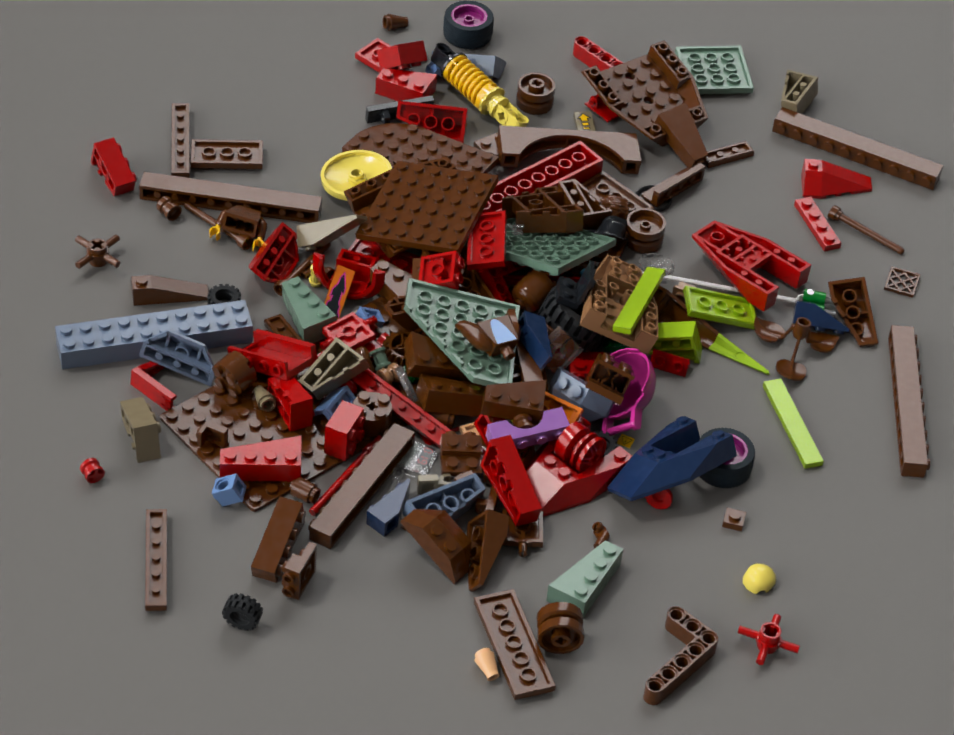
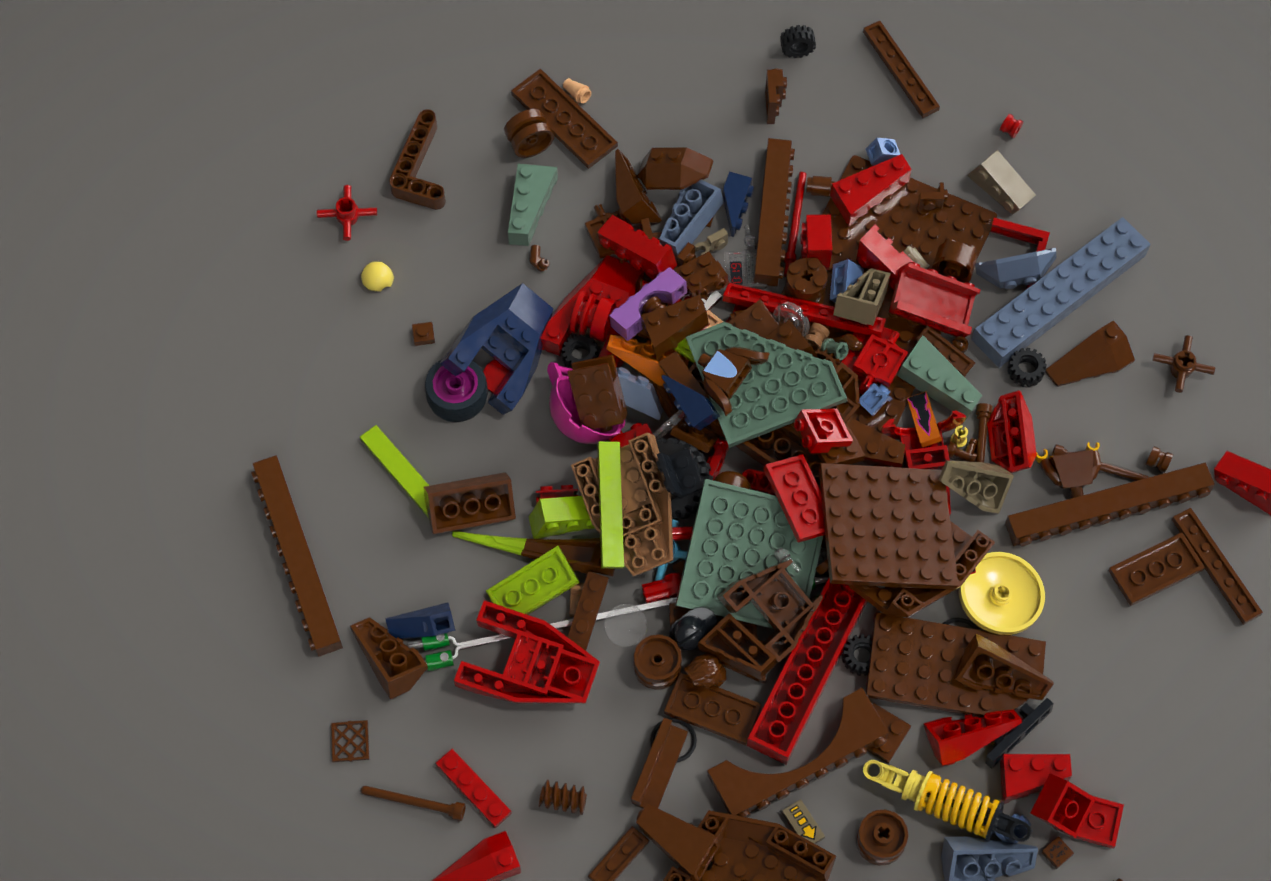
camera: 160 degrees right, 20 degrees up
(278, 539) = (810, 124): reddish brown wedge -> none
(397, 134) = (994, 668): none -> reddish brown wedge
(687, 274) = (588, 609): none -> reddish brown plate
(747, 376) = (469, 502): none -> reddish brown slope
(754, 191) = (563, 797): none -> reddish brown piece
(818, 341) = (428, 547): reddish brown plant -> none

